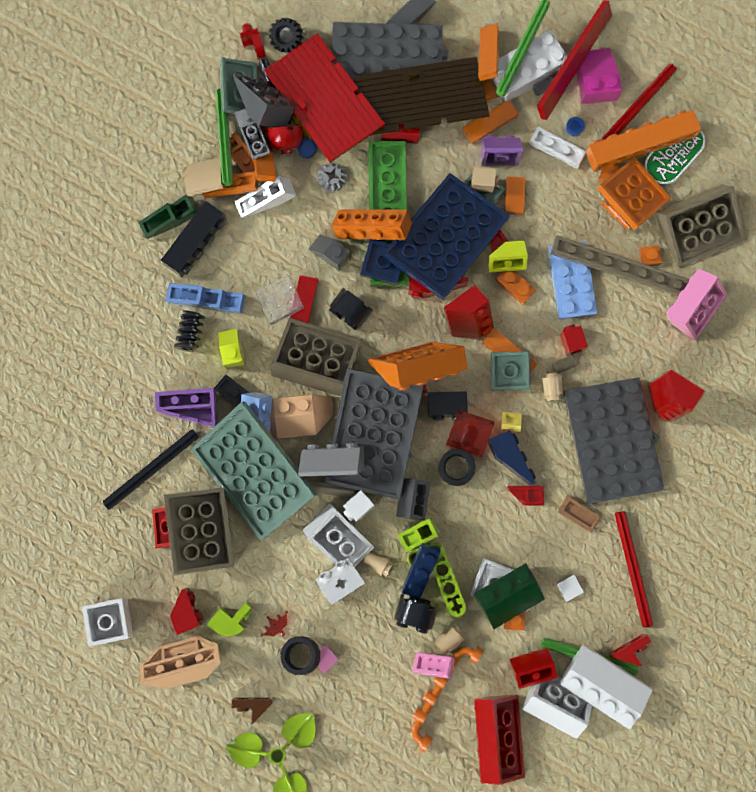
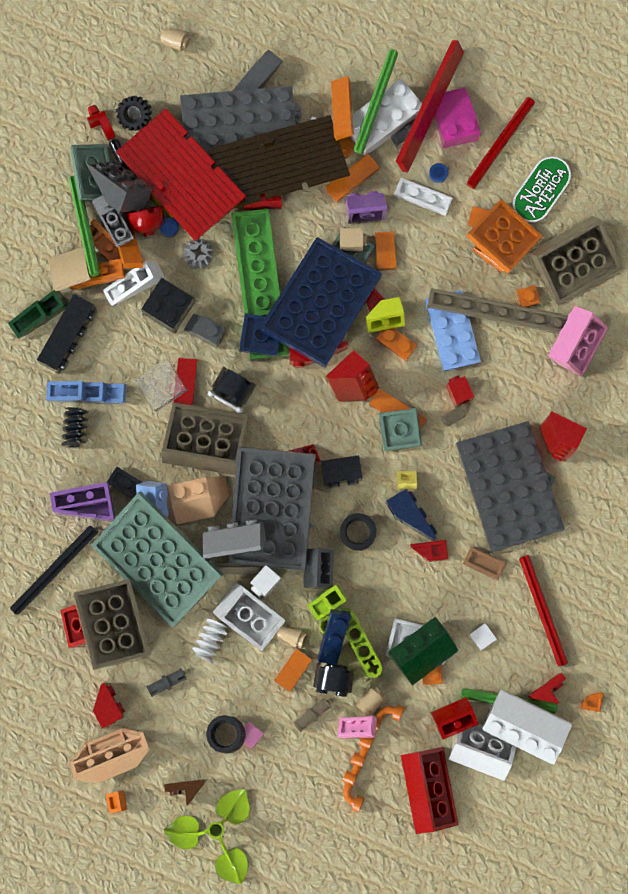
camera: 10 degrees left, 0 degrees up
(107, 621) = (32, 724): white brick -> none
(182, 710) = (116, 801): none -> orange plate
(226, 624) = (153, 714): lime brick -> none
(230, 349) = (118, 440): neon yellow slope -> none
(247, 595) = (166, 682): none -> dark grey pin
(276, 625) = (198, 709): clear red piece -> none
(295, 558) = (209, 640): none -> white piece
(296, 223) = (168, 305): none -> black brick
(334, 589) = (254, 666): white brick -> none
(353, 333) = (239, 410): none -> white hinge
(372, 224) = (245, 299): orange brick -> none
(375, 598) = (293, 670): none -> orange tile
(389, 646) = (312, 714): none -> dark tan pin
(420, 364) = (309, 434): orange slope -> none
(470, 433) = (367, 496): clear red tile -> none
(552, 387) = (444, 440): tan brick -> none
(643, 140) = (507, 181): orange brick -> none
(674, 668) = (592, 702): none -> orange tile

